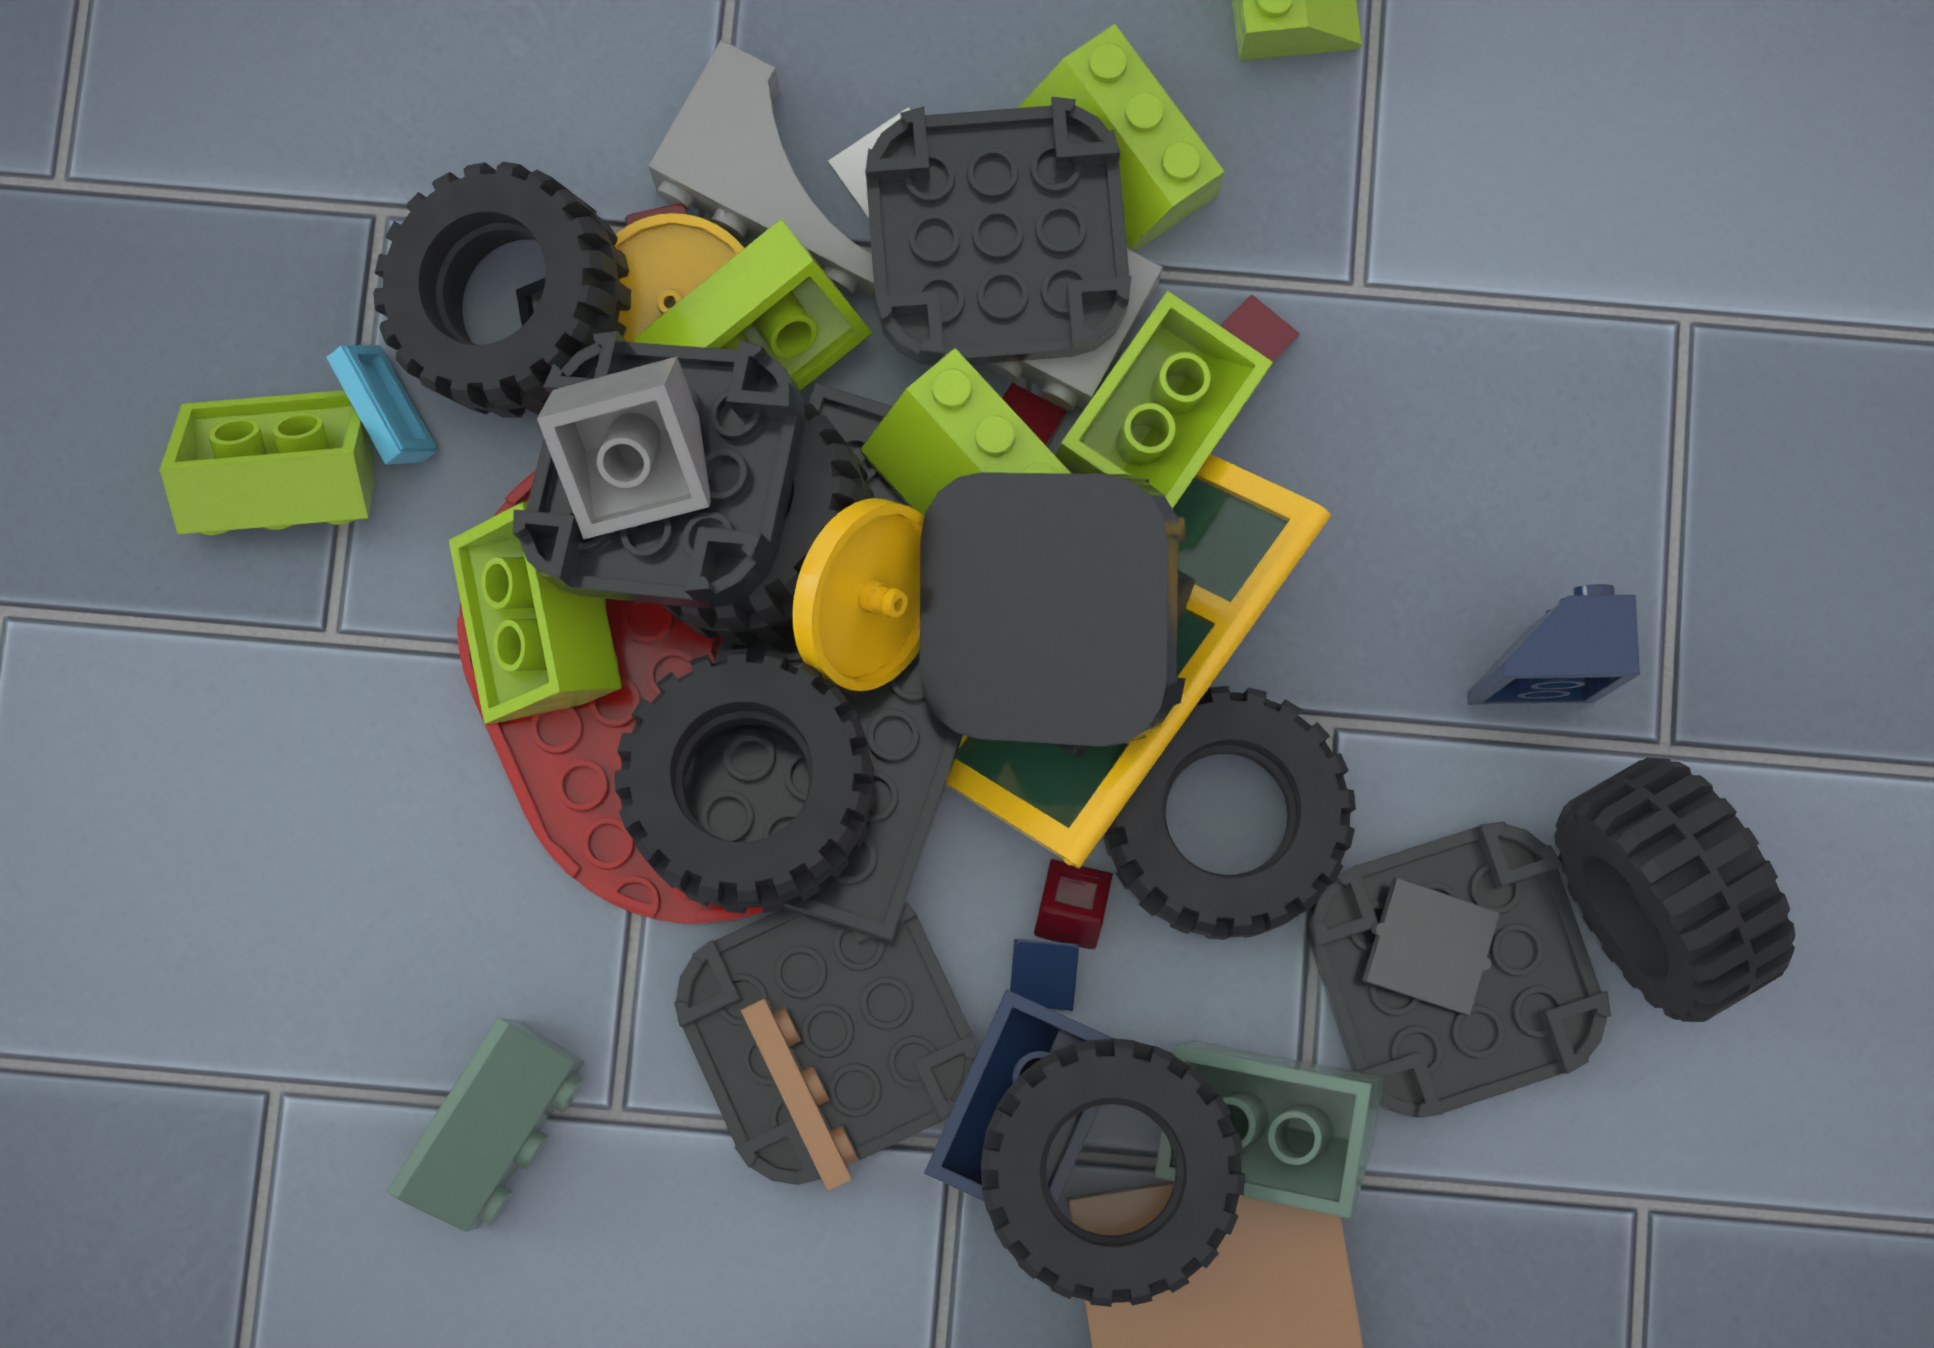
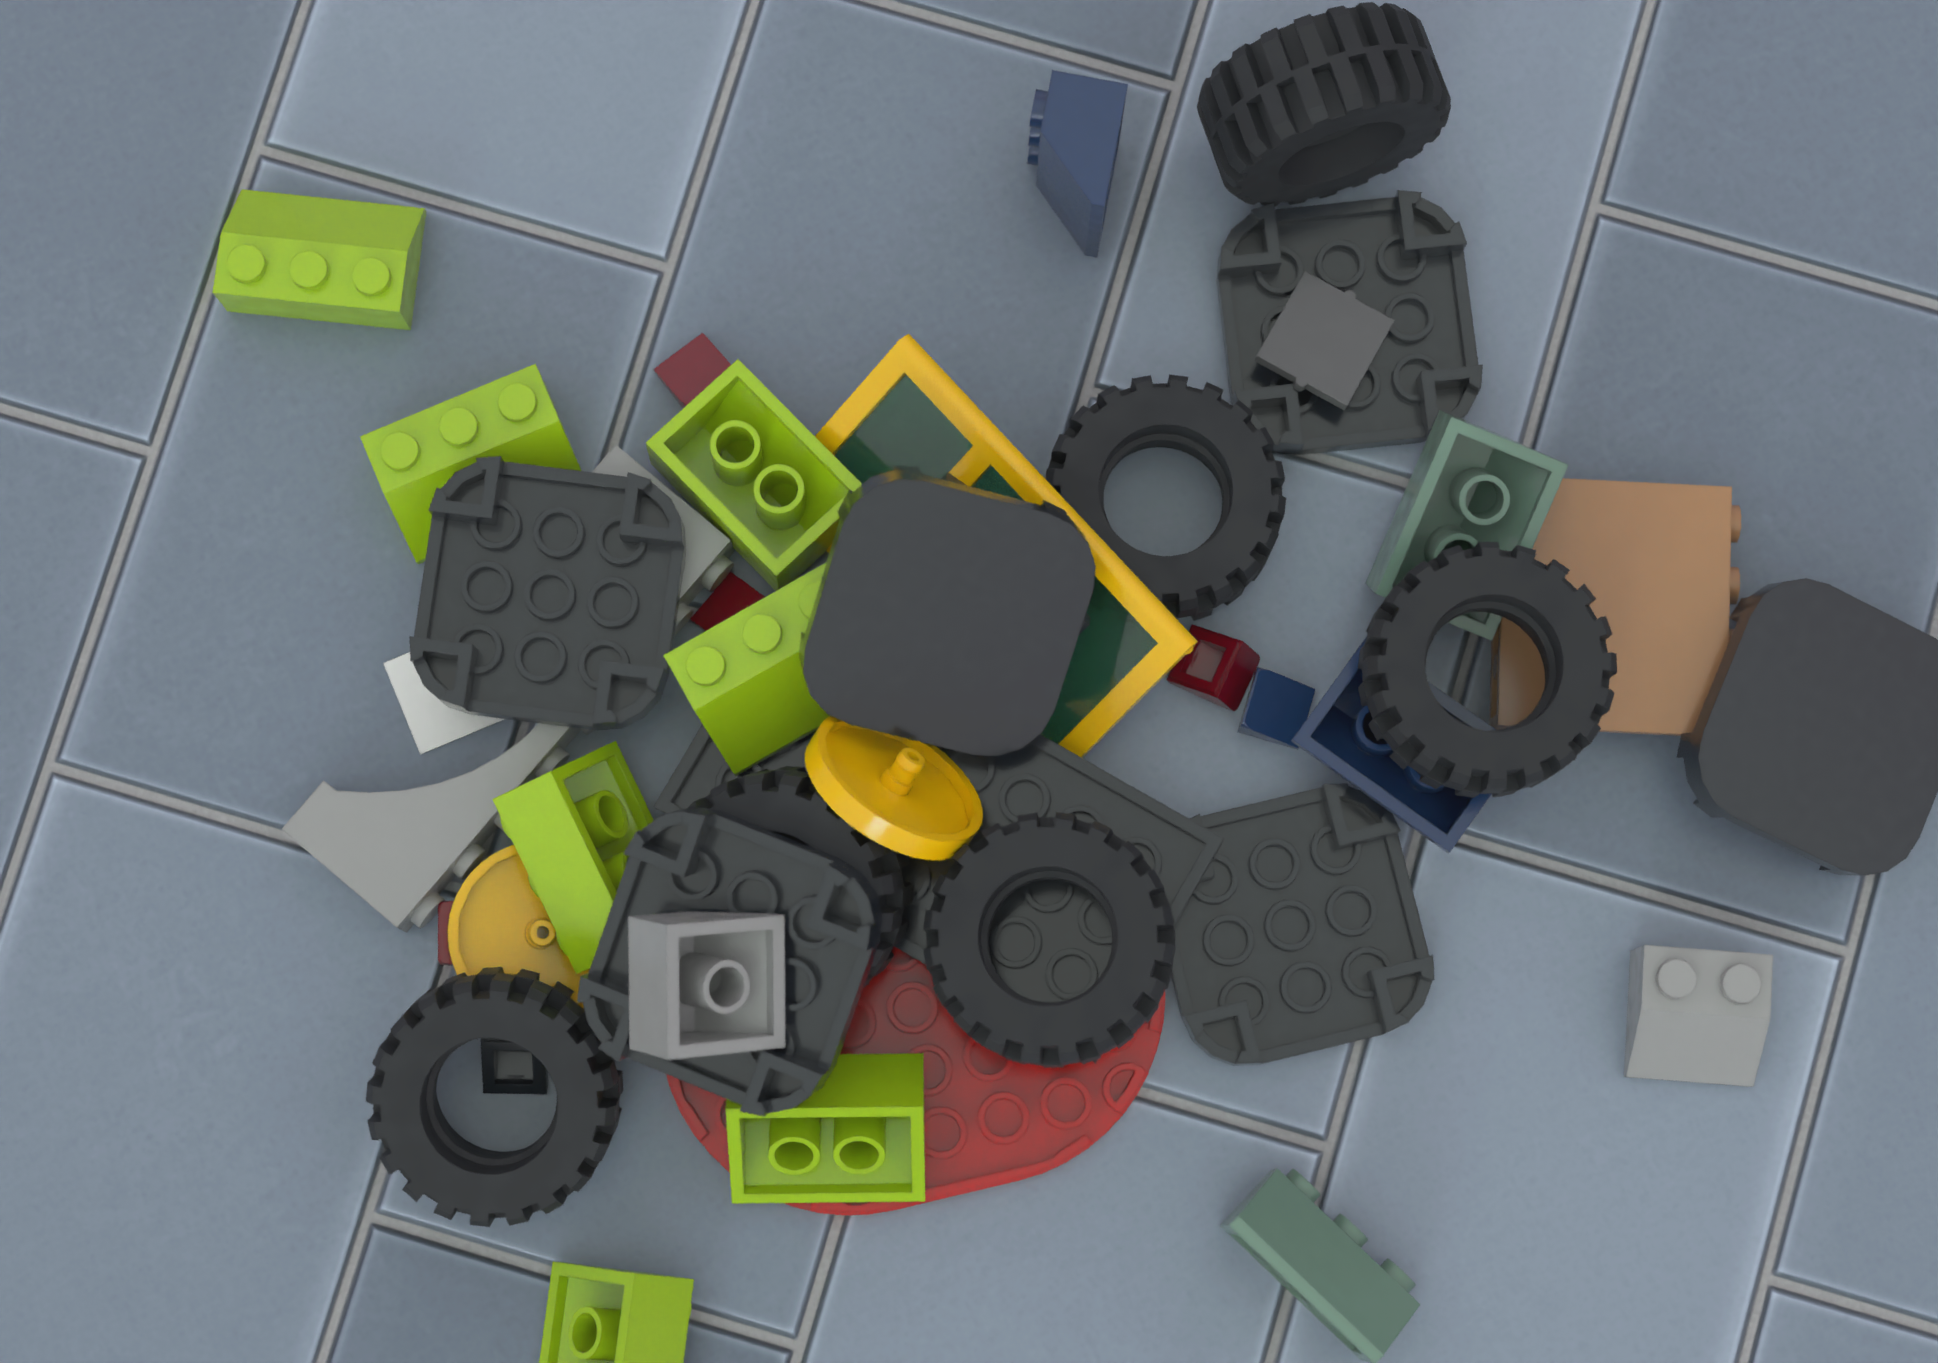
camera: 80 degrees left, 0 degrees up
(382, 404) = (577, 1245): medium azure tile -> none
(801, 1092) = (1349, 956): medium nougat plate -> none

